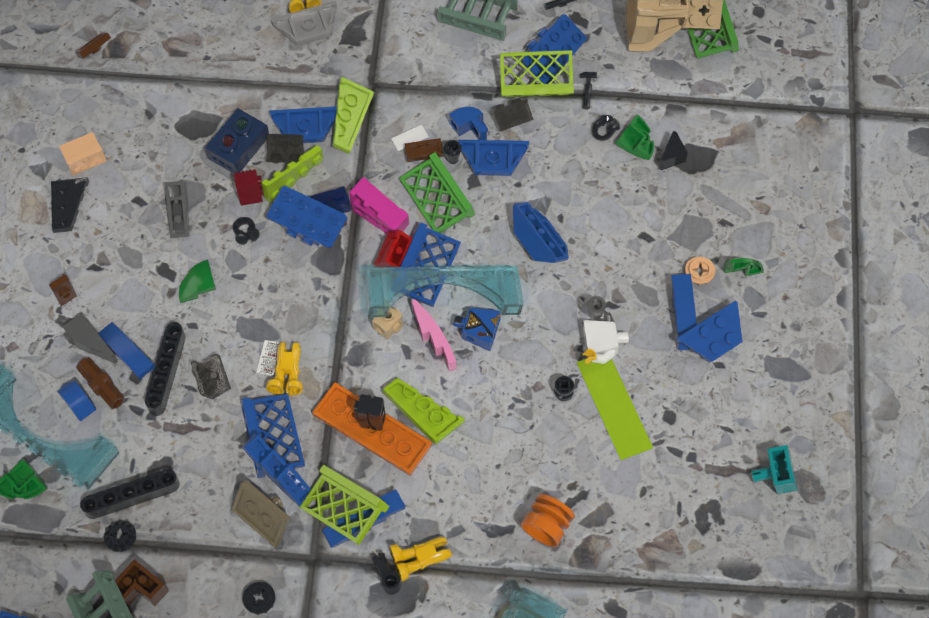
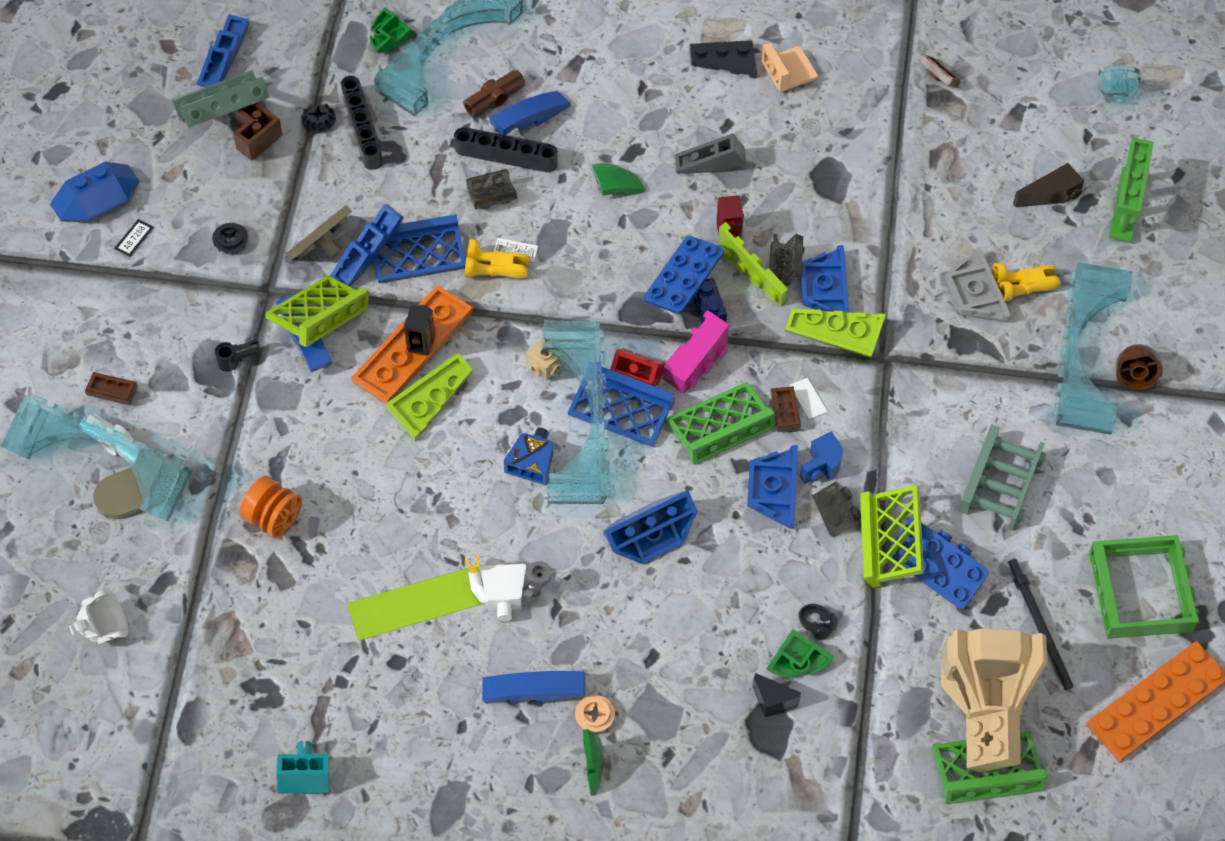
camera: 90 degrees right, 5 degrees down
(63, 290) = (604, 50): reddish brown plate -> none
(76, 400) = (472, 69): blue brick -> none
(87, 339) = (553, 75): dark grey slope -> none
(237, 141) = (797, 210): dark blue piece -> none
(242, 237) = (673, 230): black piece -> none
(424, 554) = (255, 388): yellow piece -> none
(431, 331) = (534, 403): bright pink slope -> none
(452, 151) = (777, 434): black cone -> none
(566, 392) = (441, 548): black wheel -> none
(588, 88) = (879, 604): black piece -> none
(715, 334) = (498, 718): blue wing -> none

